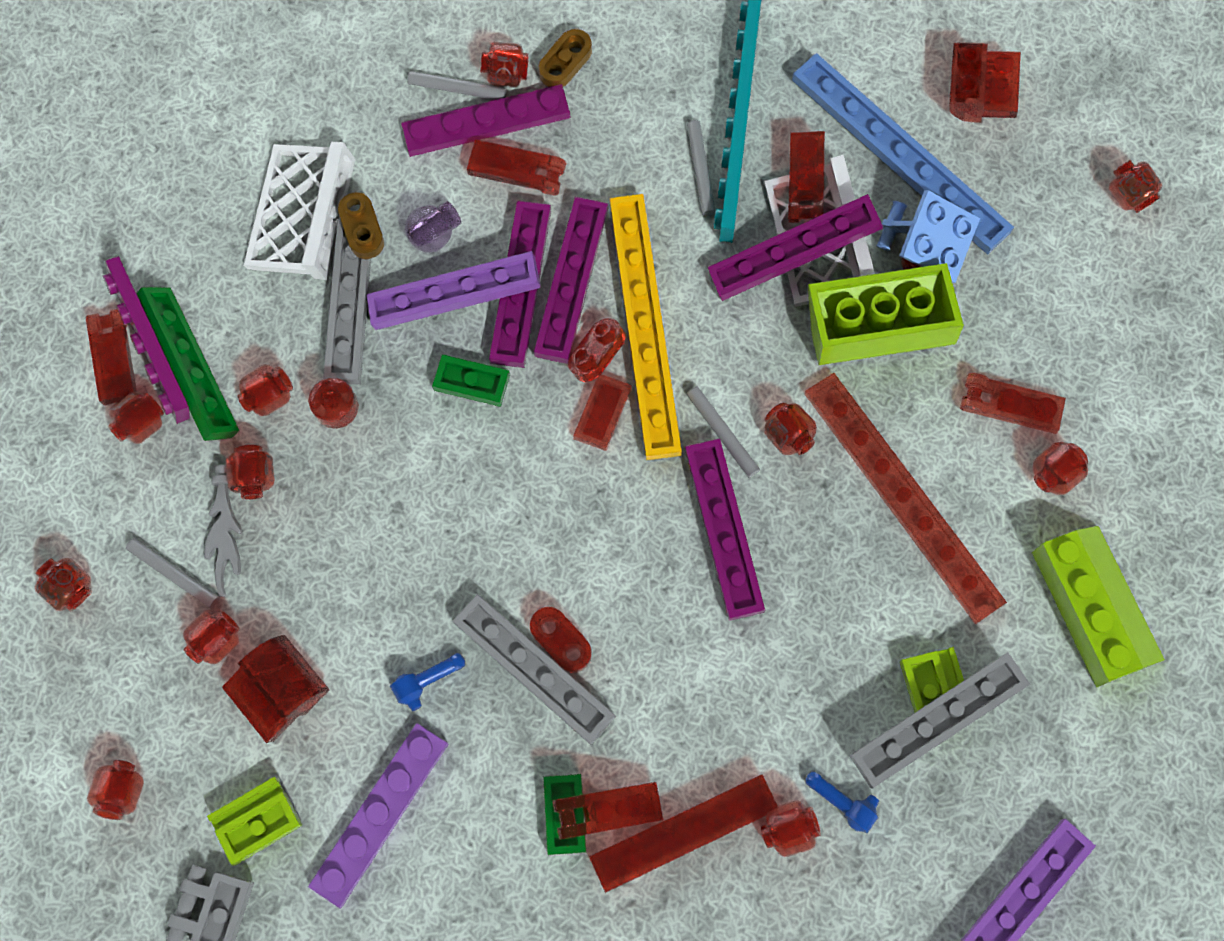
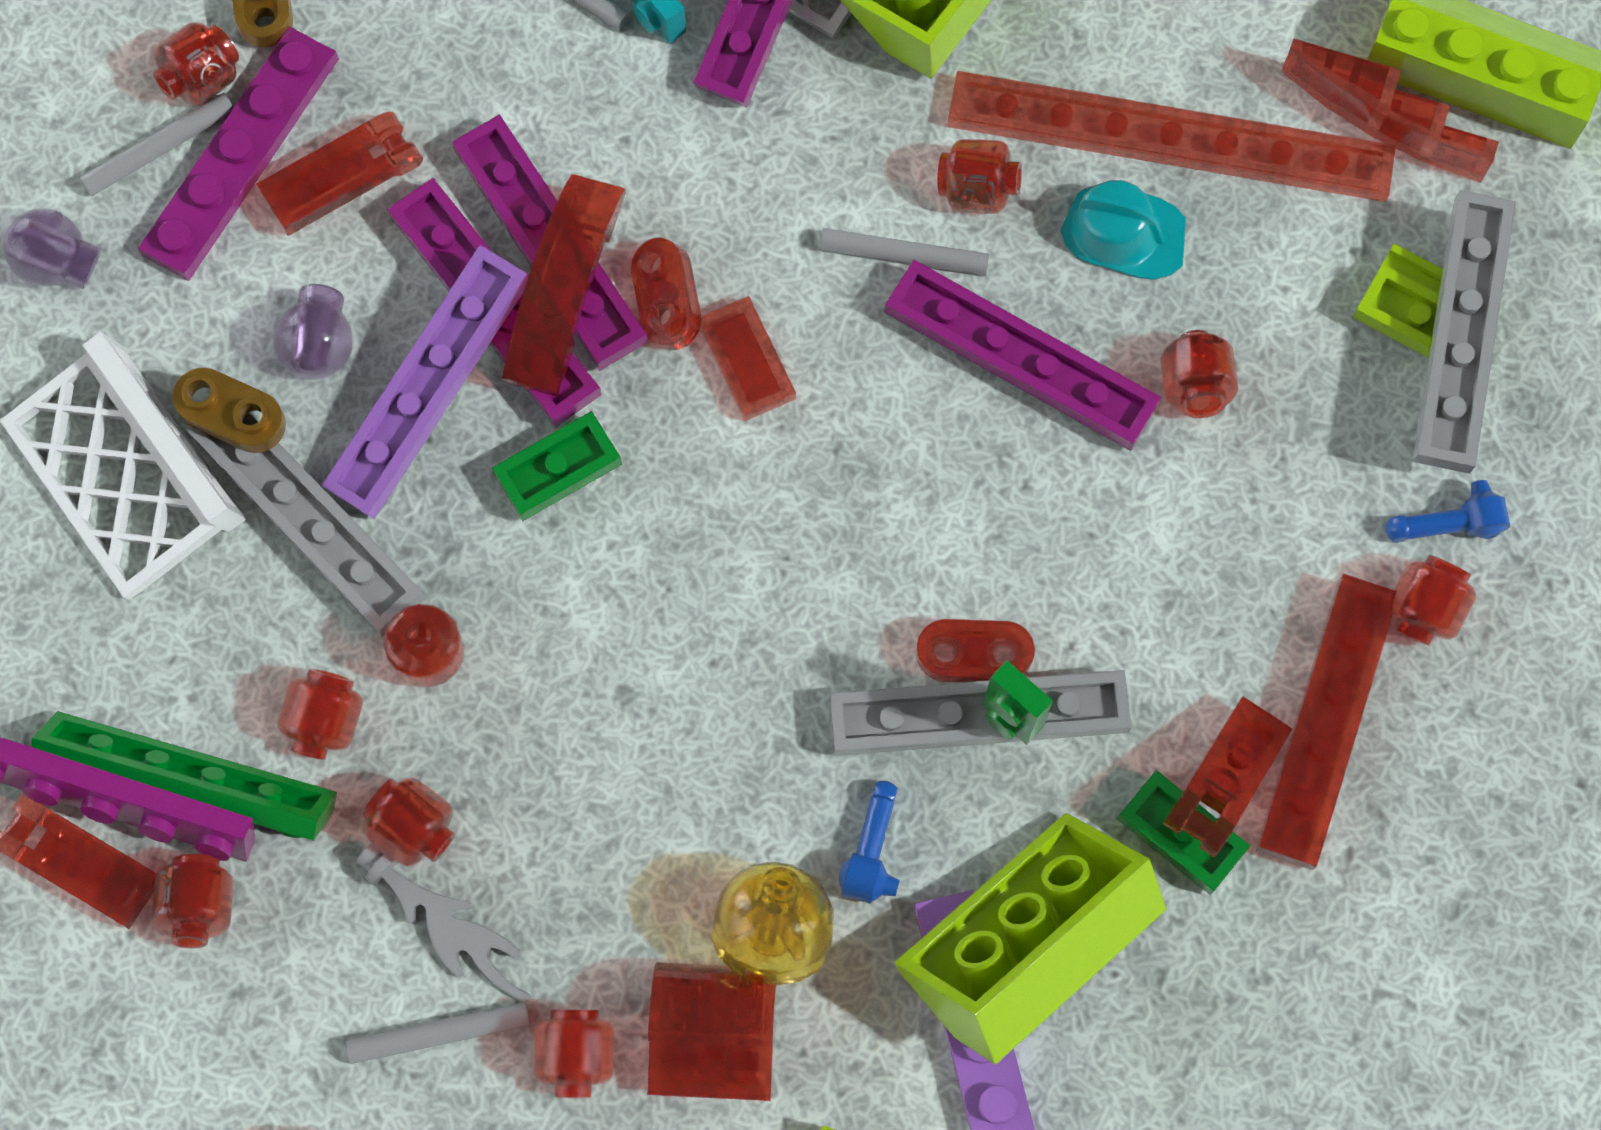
camera: 50 degrees left, 0 degrees up
(344, 669) = (773, 923): none -> clear yellow cylinder
(364, 90) = (49, 249): none -> clear purple piece
(445, 790) = (1033, 935): none -> lime slope
(538, 679) = (1015, 704): none -> green plate
(553, 298) = (560, 283): none -> clear red slope
(645, 328) = (693, 215): yellow plate -> none
(795, 616) = (1199, 374): none -> clear red head
(835, 520) = (1125, 230): none -> teal piece
(1016, 567) = (1368, 99): none -> clear red slope

